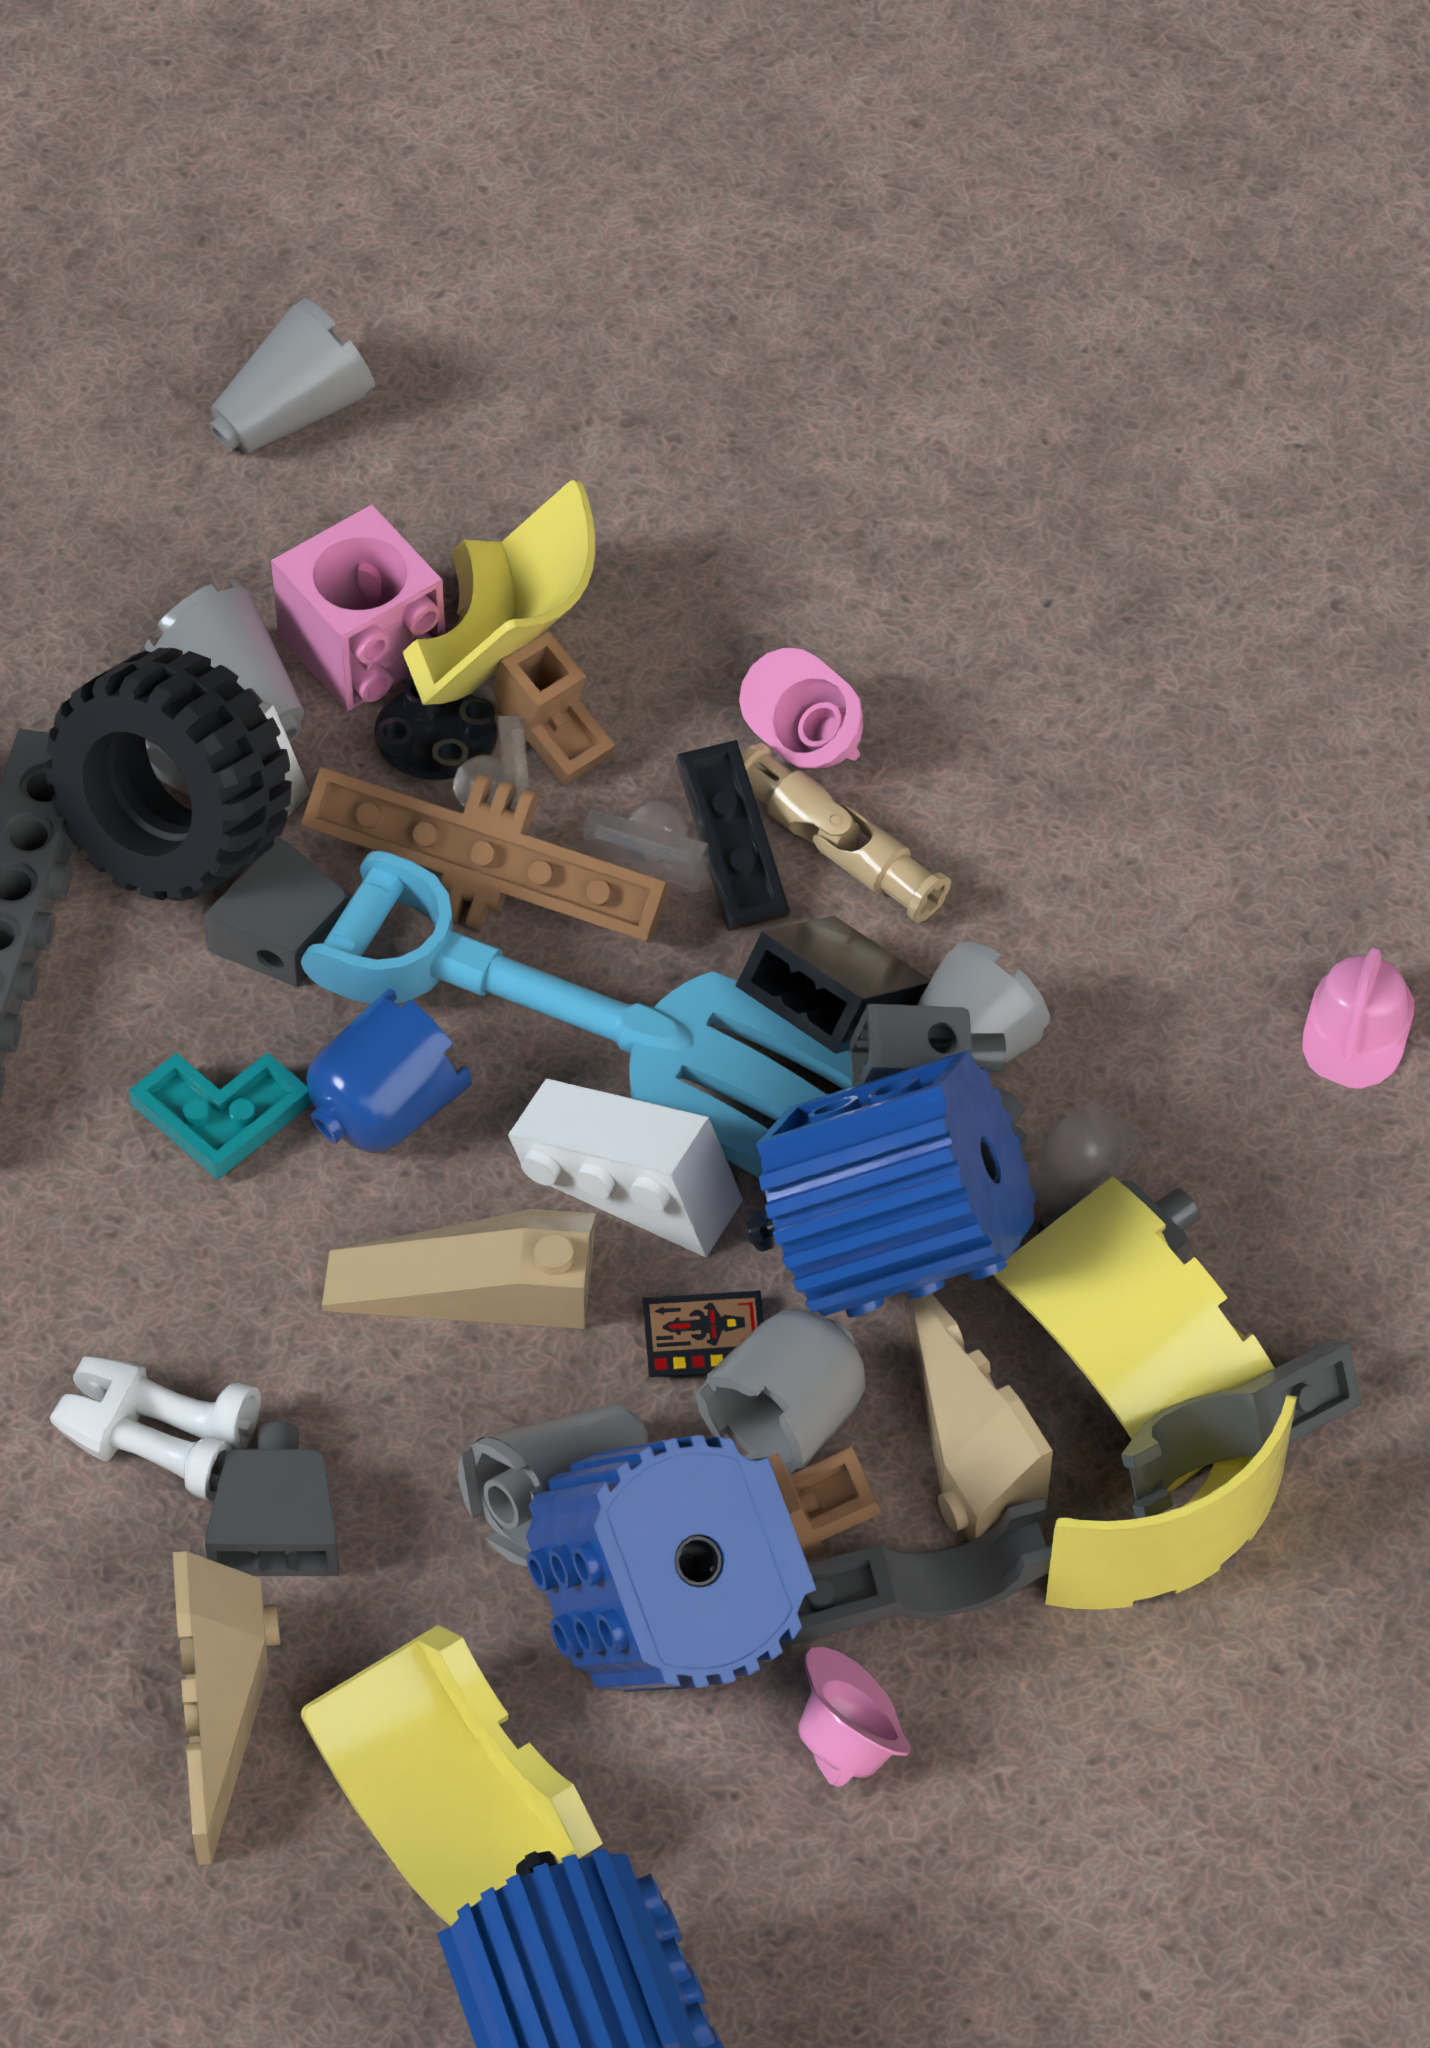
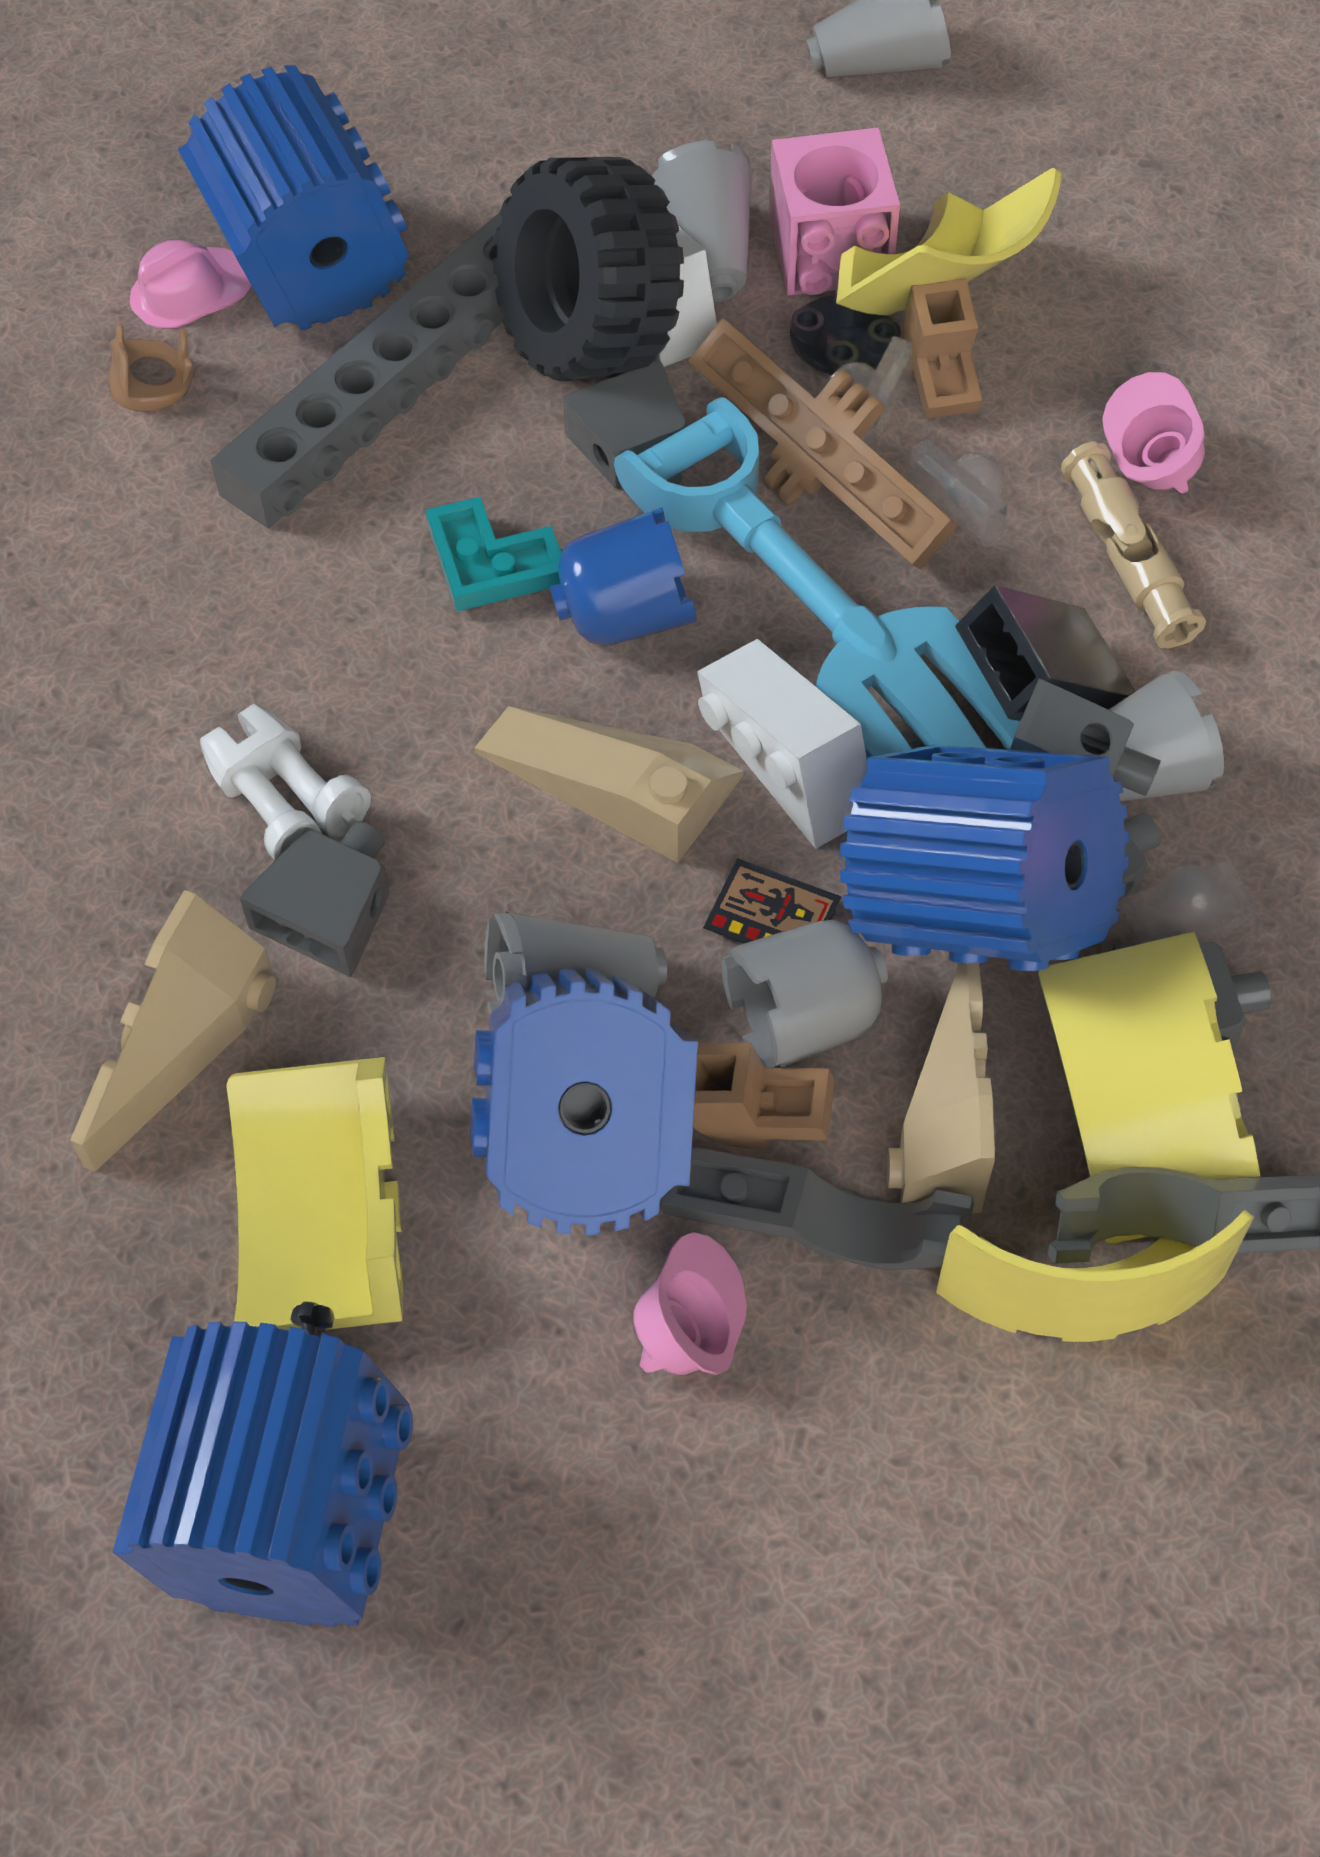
camera: 30 degrees right, 5 degrees up
(736, 838) = (1037, 508): black tile -> none

